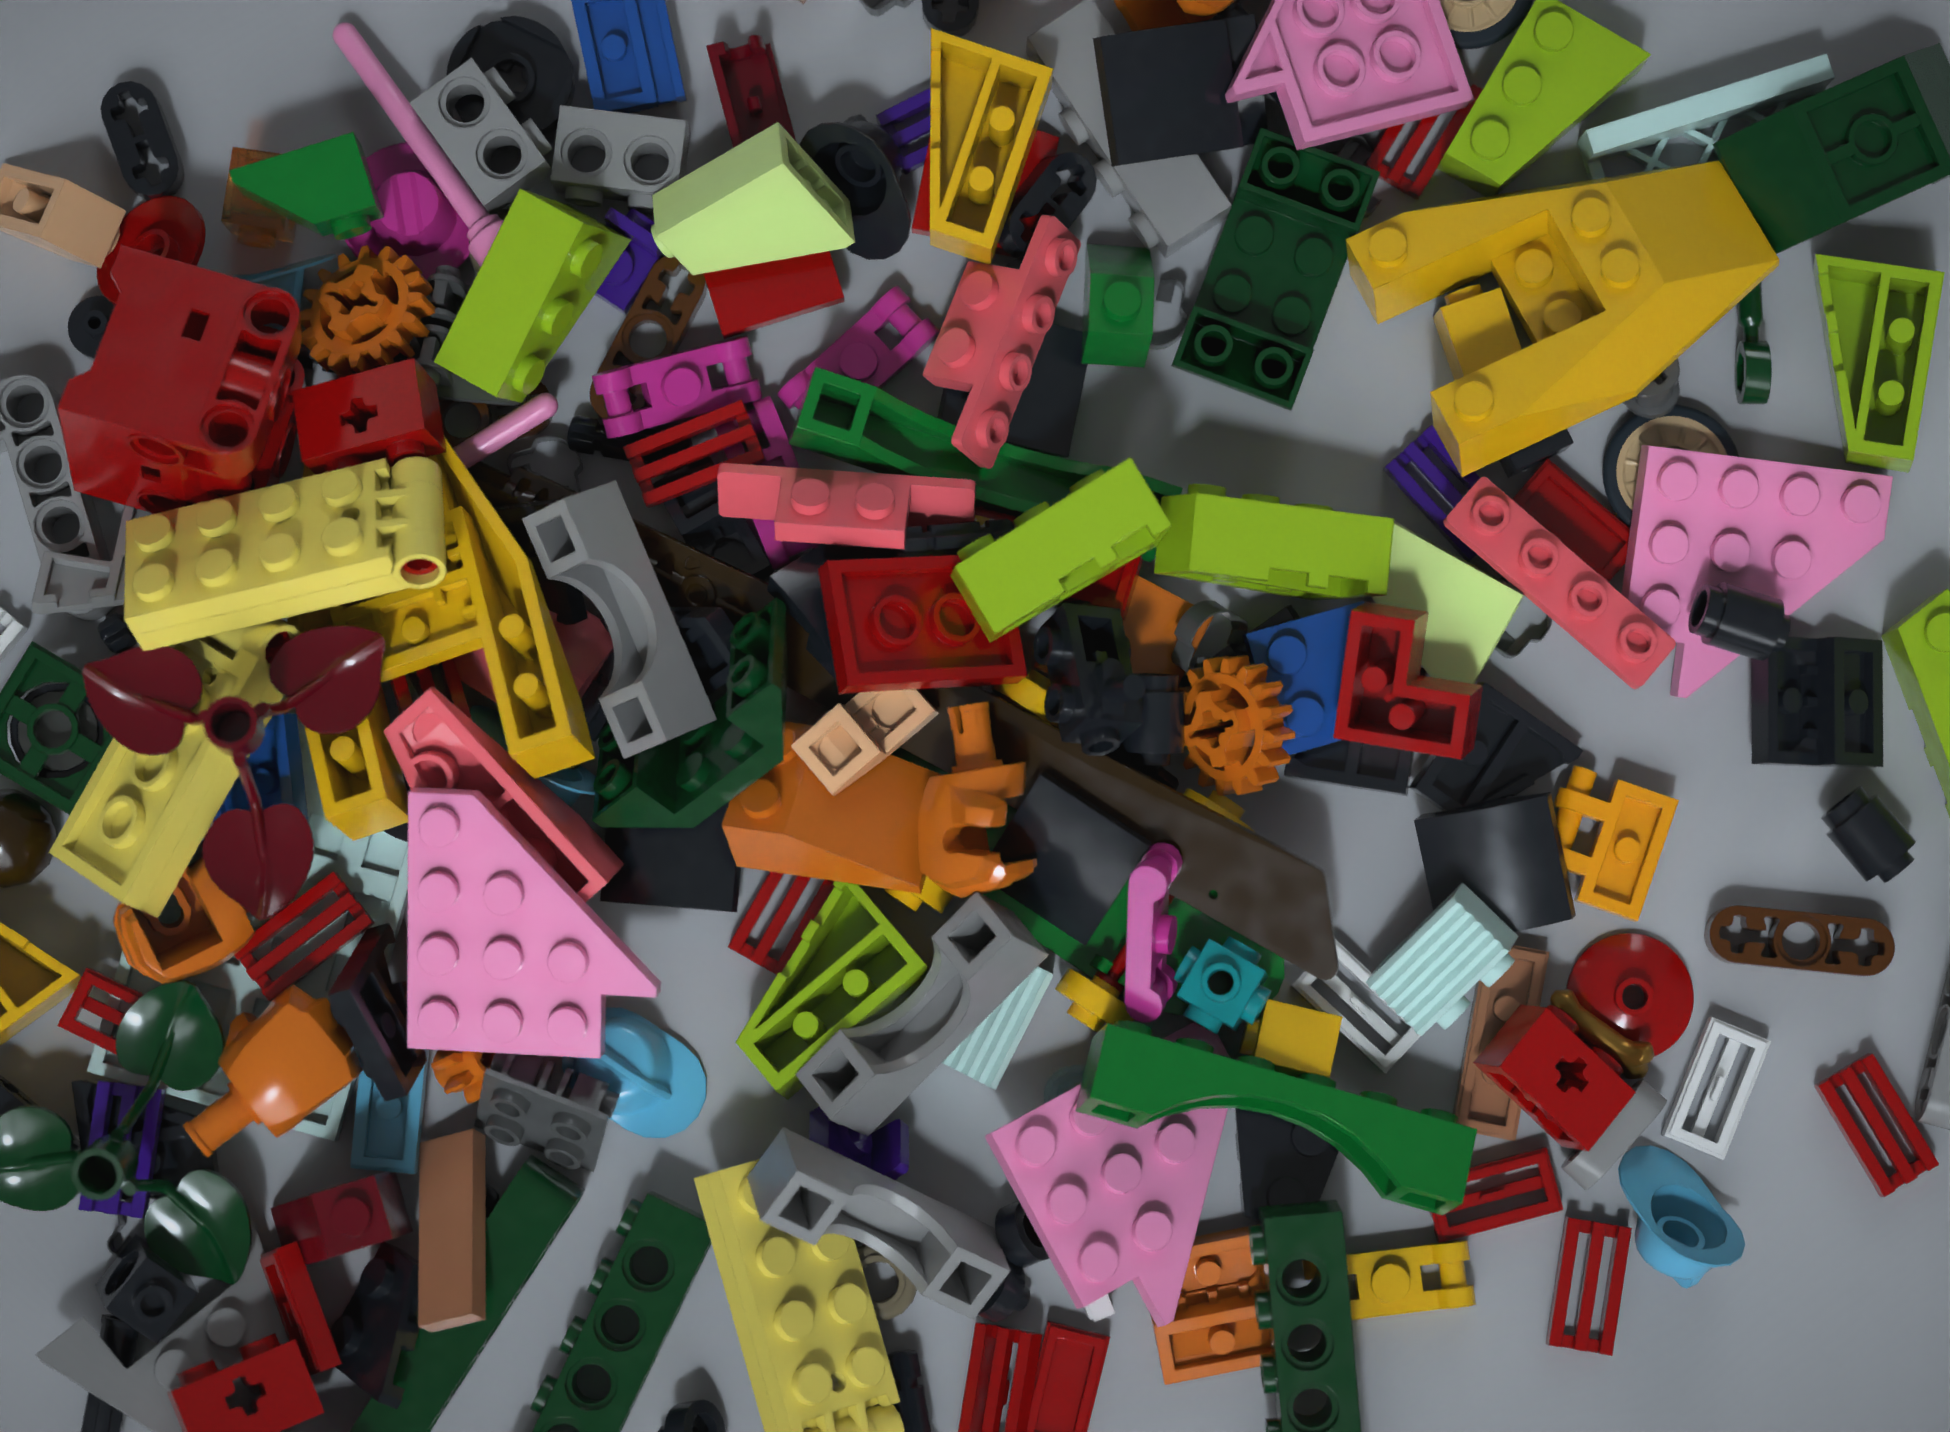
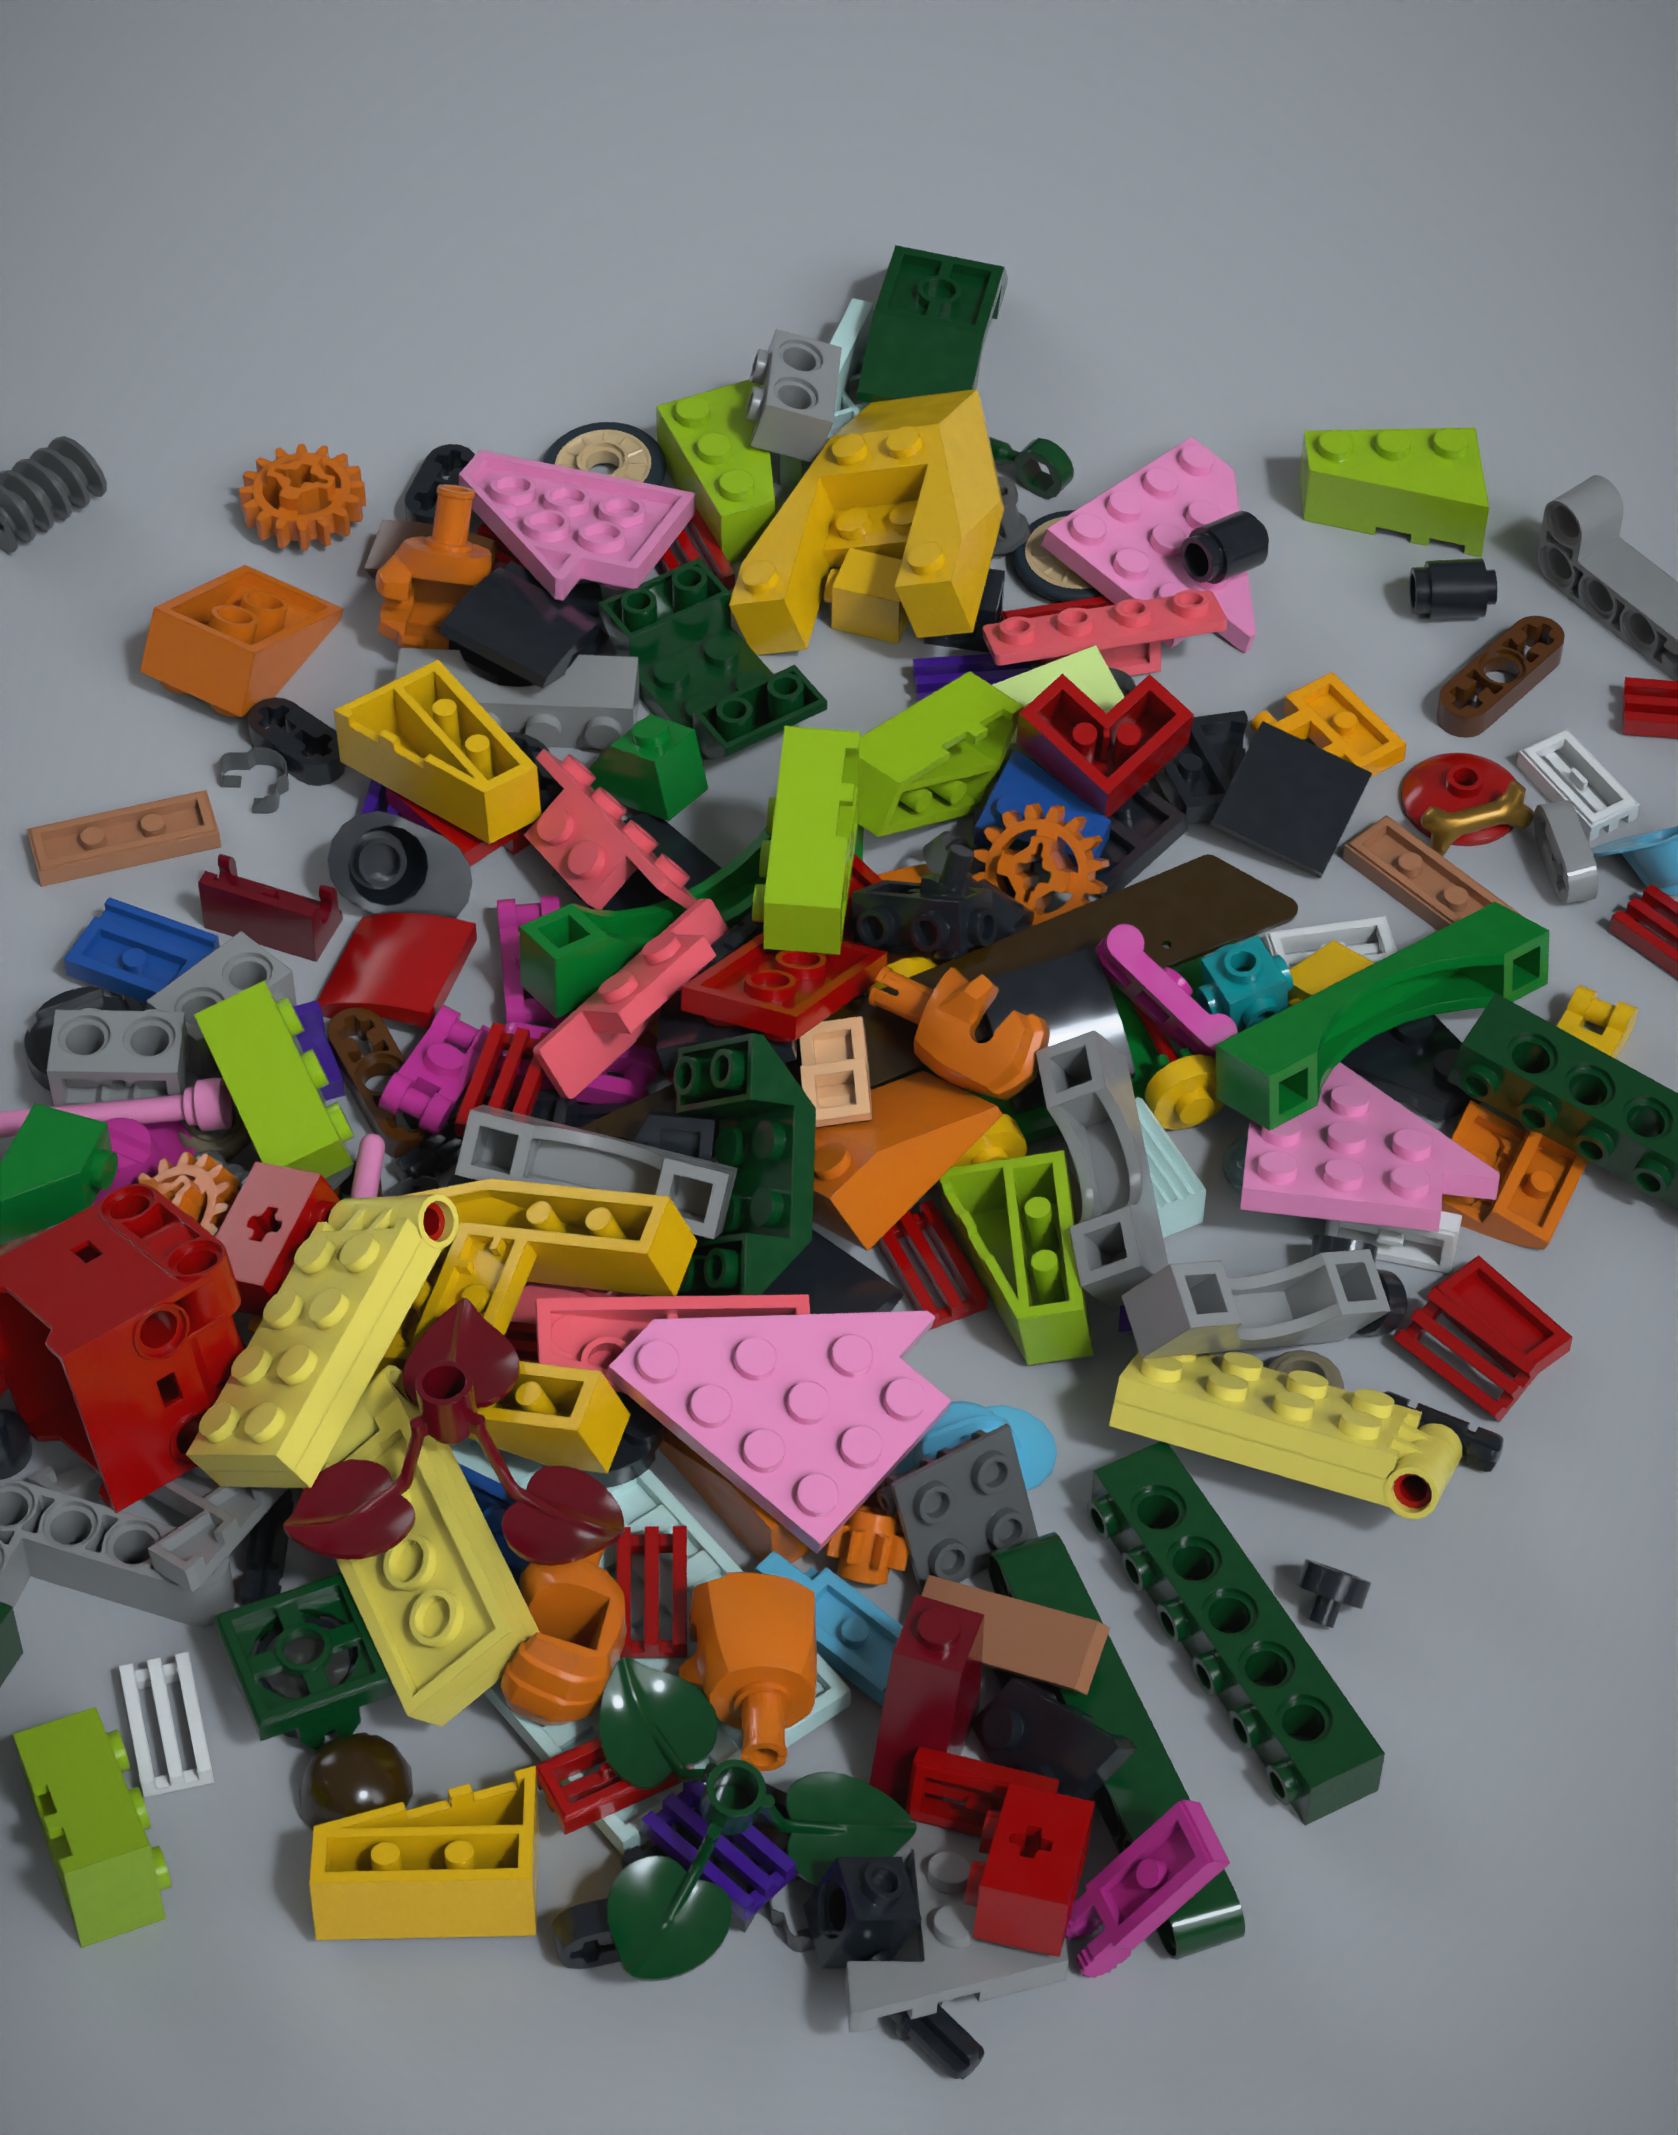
camera: 50 degrees left, 35 degrees down
(376, 1015) = (767, 1548): black wing -> none
(752, 208) = (350, 918): yellowish green slope -> none
(1443, 961) = (1340, 858): light aqua brick -> none
(1523, 1066) = (1490, 848): red brick -> none
(1544, 1180) = (1570, 919): red tile -> none
(1632, 129) = (793, 395): none -> light grey brick
(1819, 704) = (1326, 569): black slope -> none
(1878, 353) = (1094, 390): lime wedge -> none

